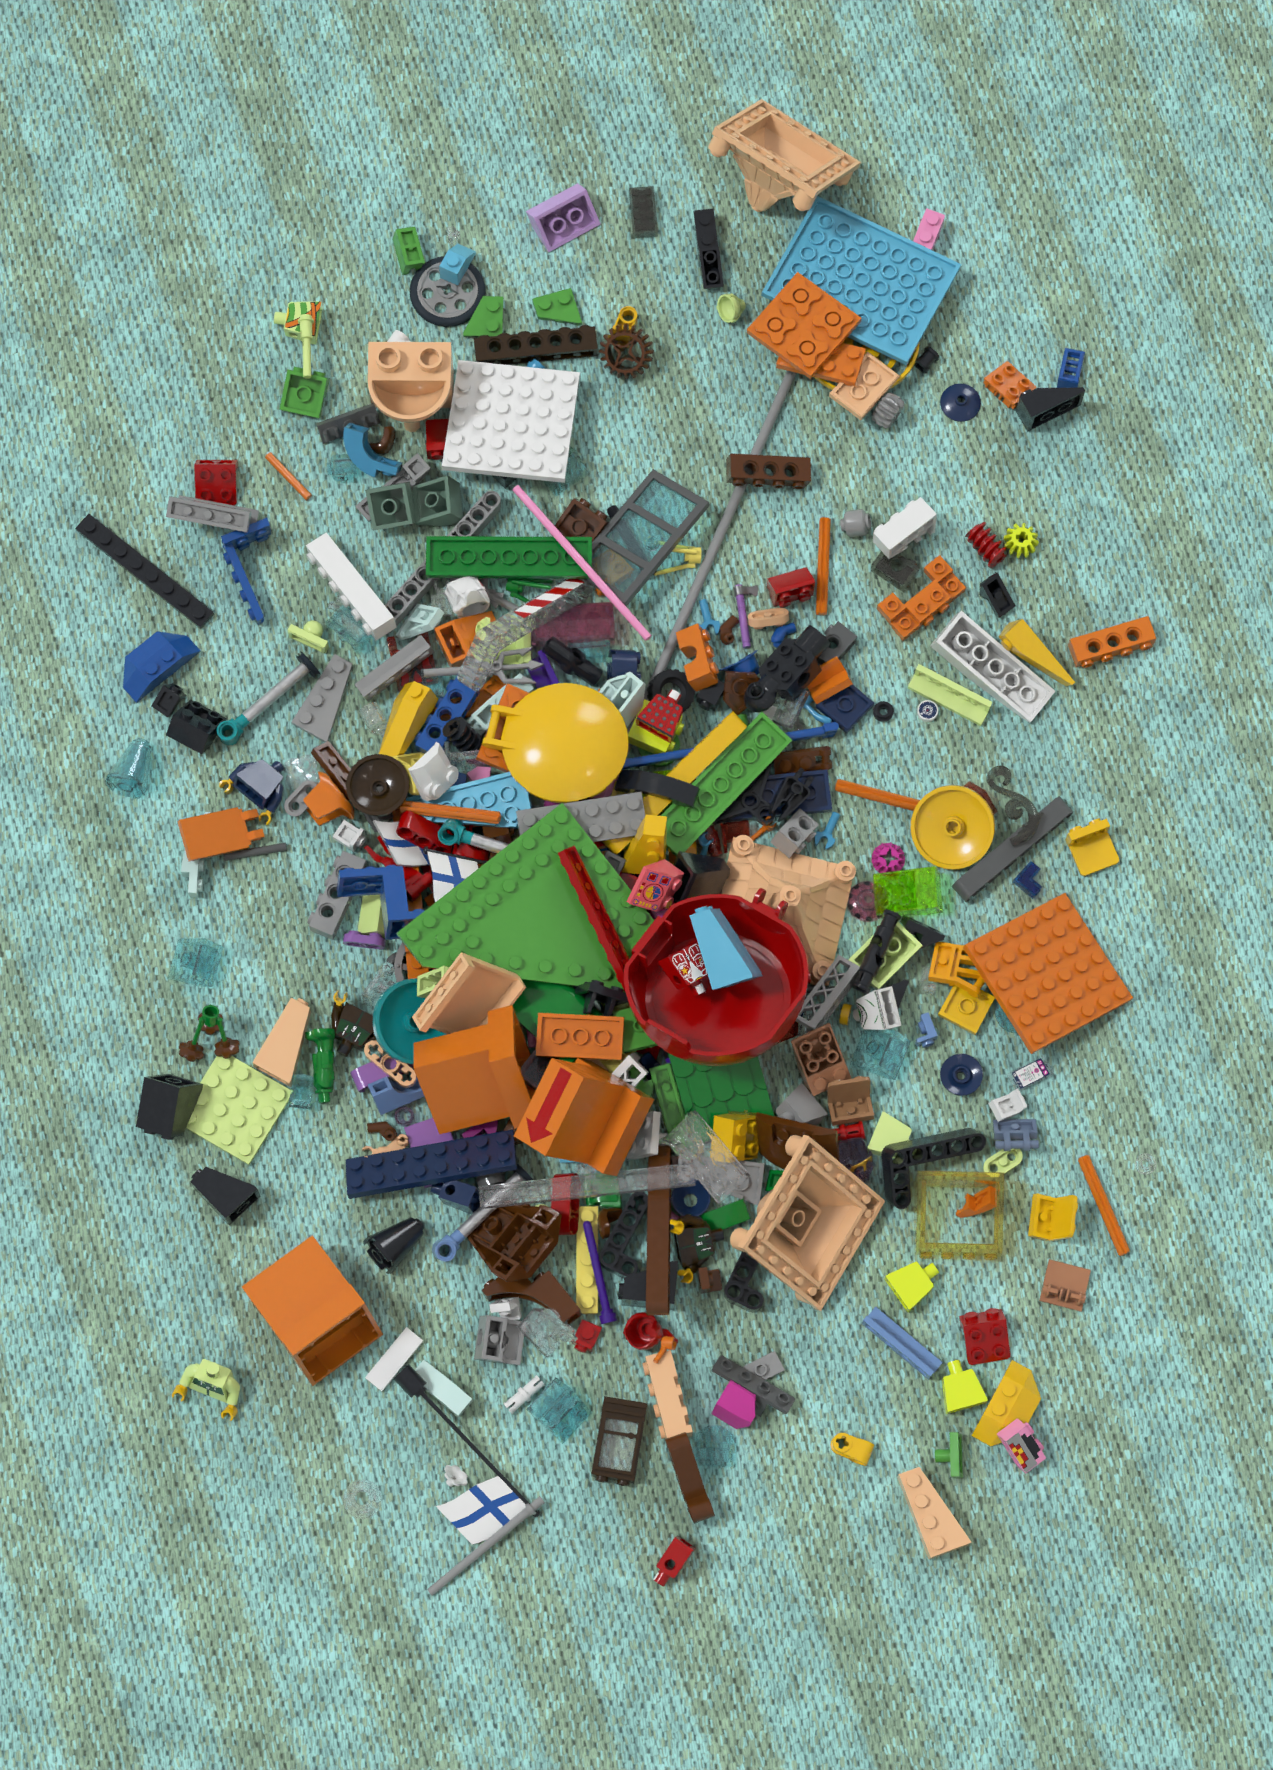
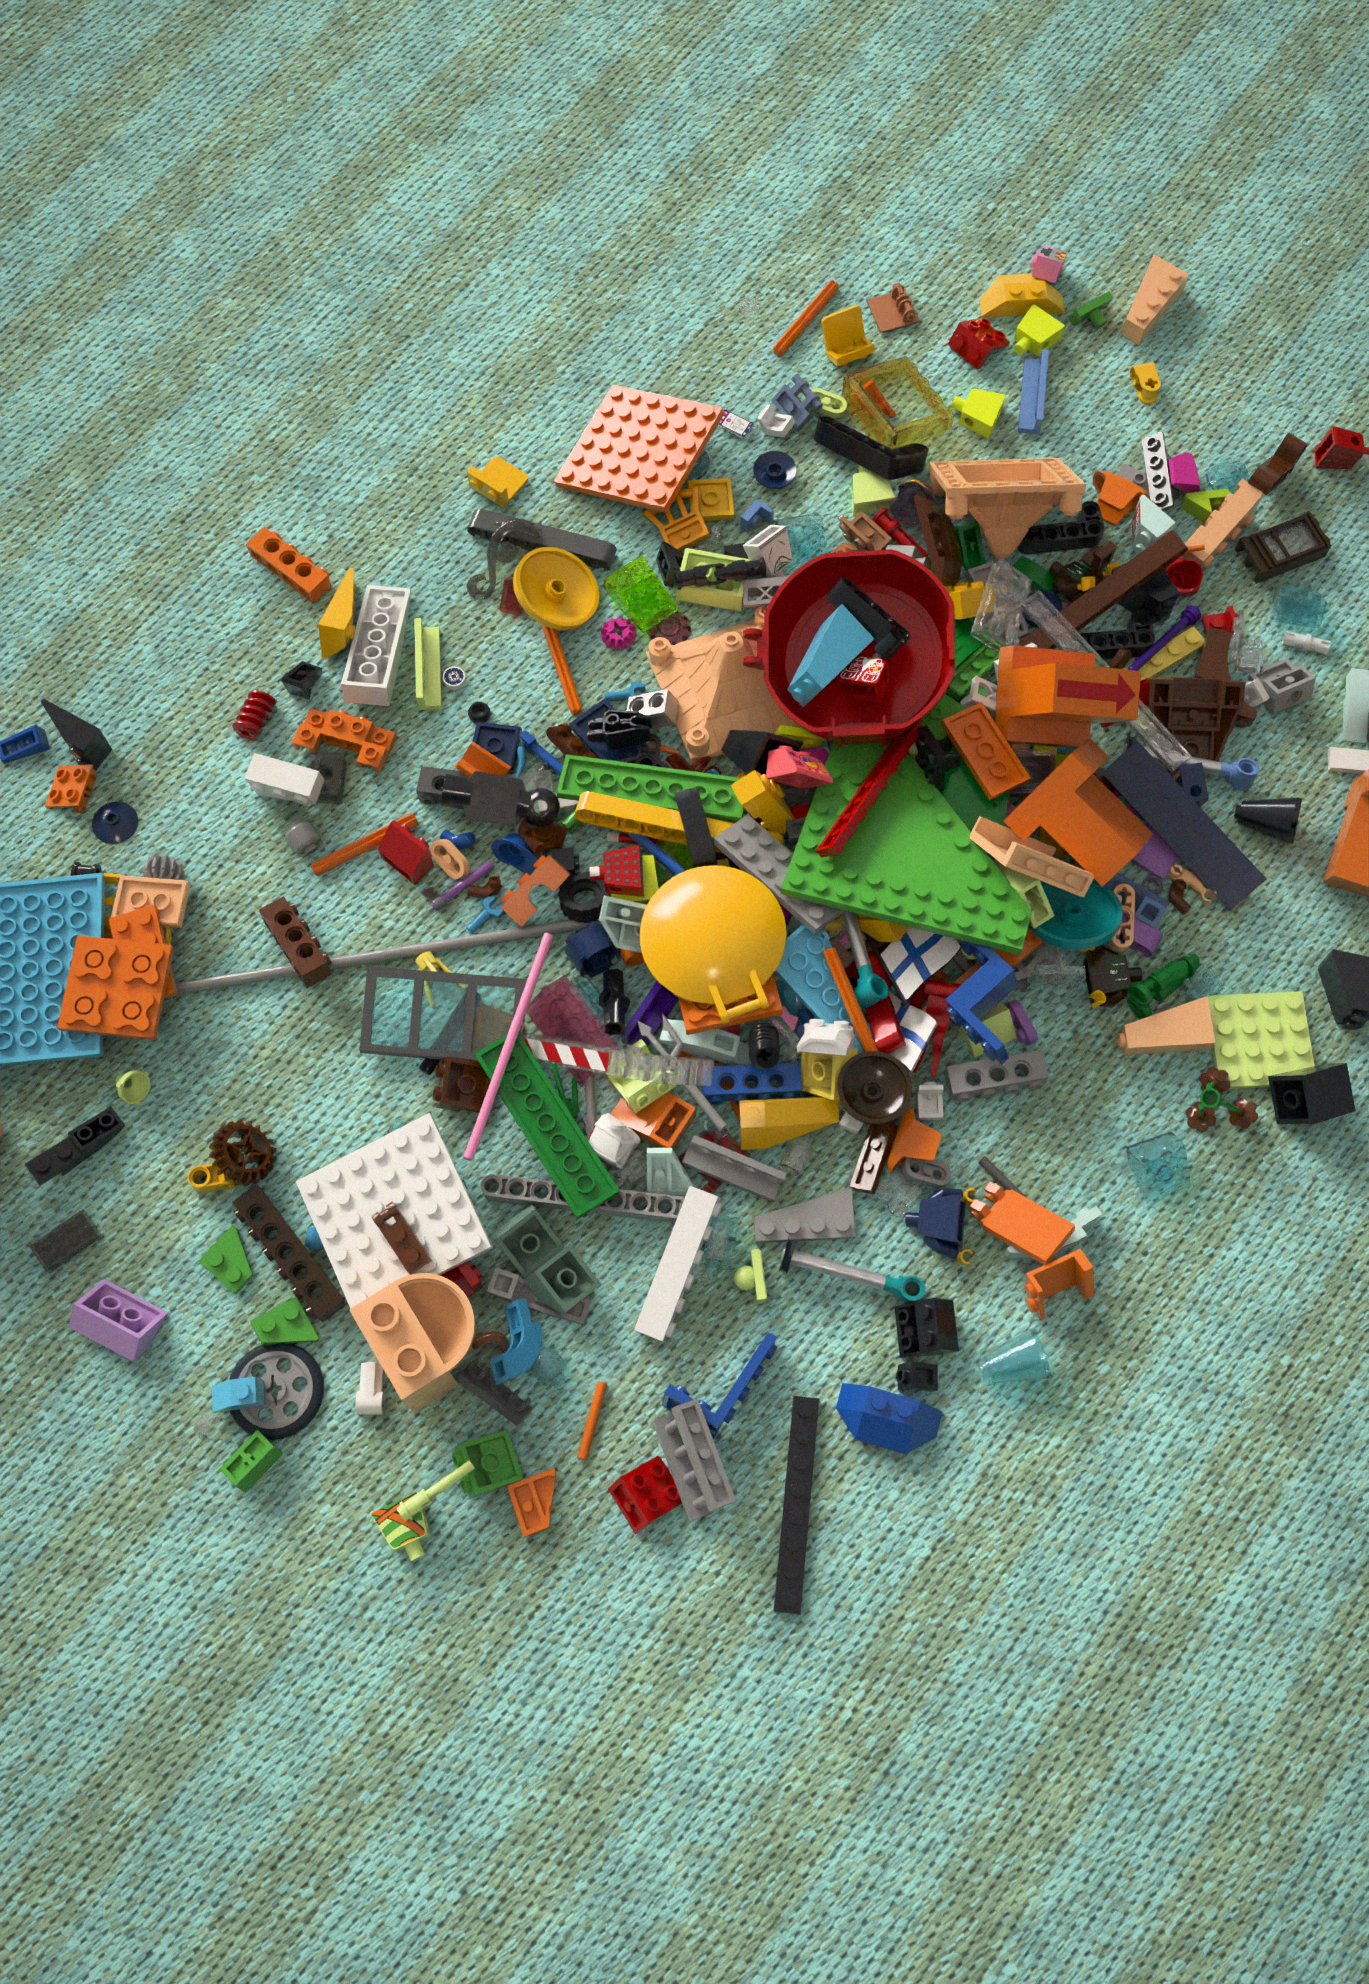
camera: 120 degrees left, 5 degrees down
(164, 845) = (1056, 1277): none -> orange panel
(261, 408) = (533, 1501): none -> orange wing
(487, 412) = (402, 1239): none -> reddish brown plate
(703, 1332) = (1148, 524): none -> light aqua slope
(703, 1402) = (1203, 503): none -> lime slope
(754, 1334) = (1116, 495): none -> orange piece
(759, 991) = (886, 630): none -> black beam
(1026, 881) = (561, 517): clear blue piece -> none
(1029, 540) = (231, 689): neon yellow gear -> none

